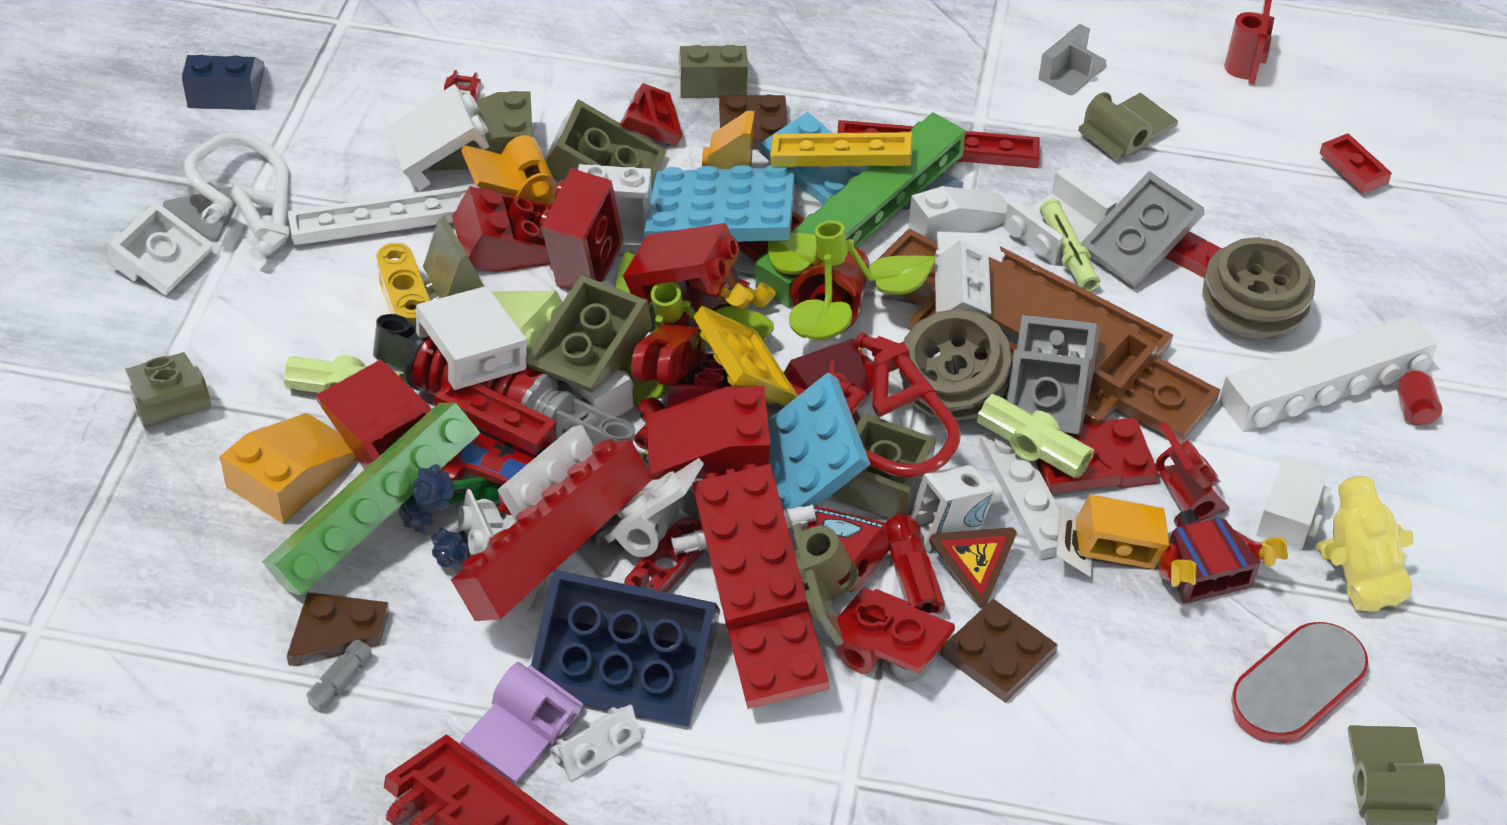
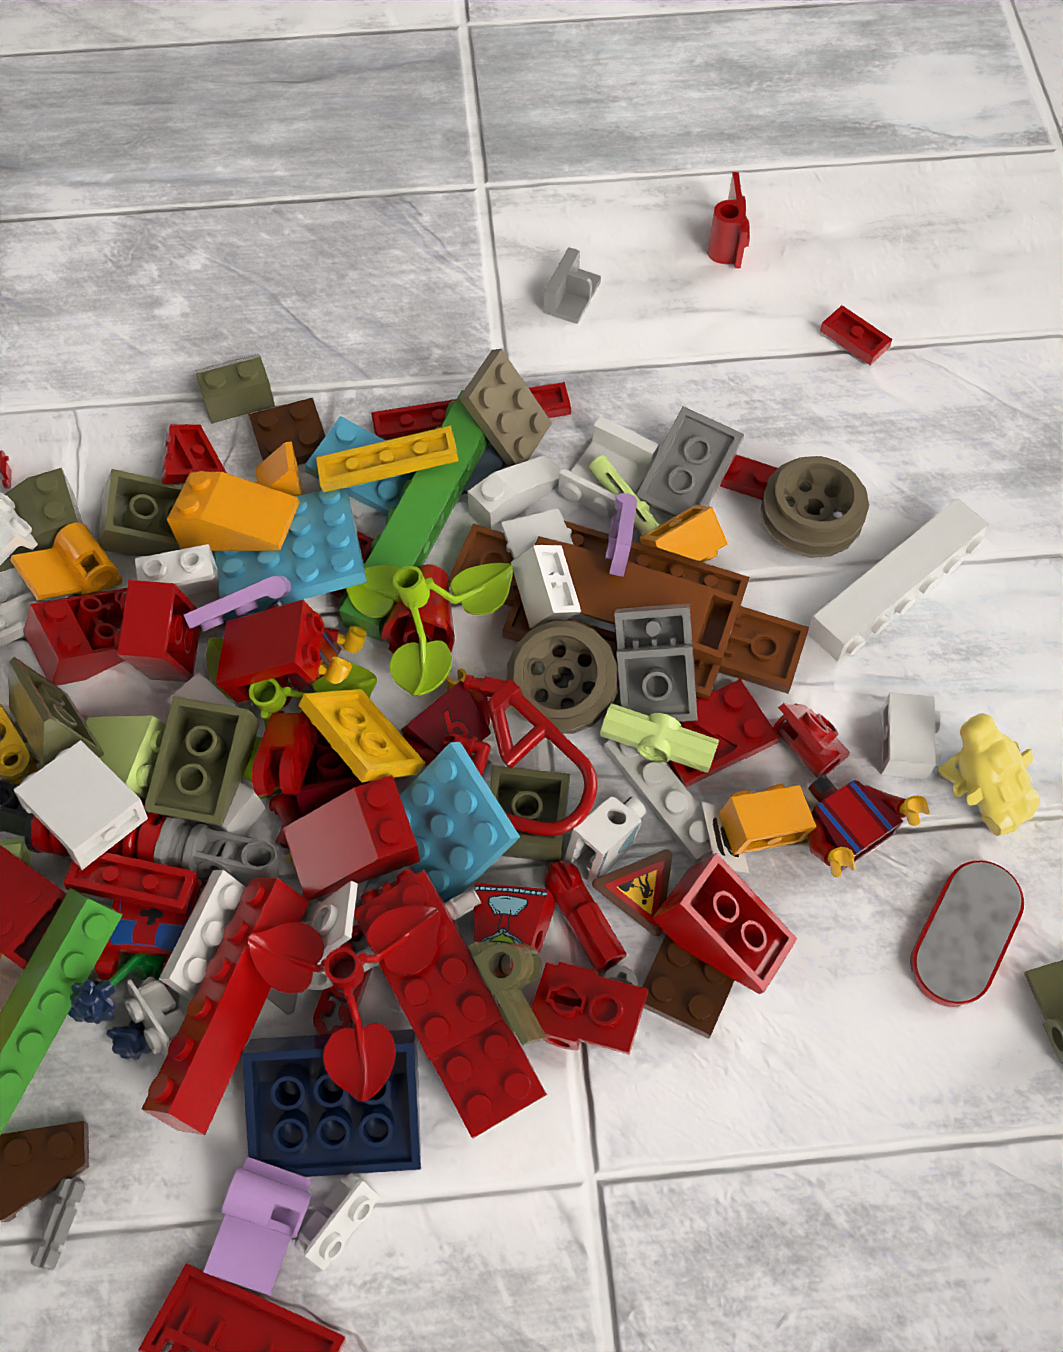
camera: 15 degrees left, 15 degrees up
(623, 499) = (289, 954): none -> red plant
(634, 226) = (240, 602): none -> lavender plate
(679, 158) = (231, 514): none -> light orange slope
(971, 136) = (505, 409): none -> dark tan plate
(1050, 600) = (725, 924): none -> red slope
(1052, 262) = (621, 533): none -> lavender plate
(1124, 126) = (640, 347): olive piece -> none
(1125, 285) = (690, 534): none -> light orange slope
(1419, 398) = (985, 583): red brick -> none

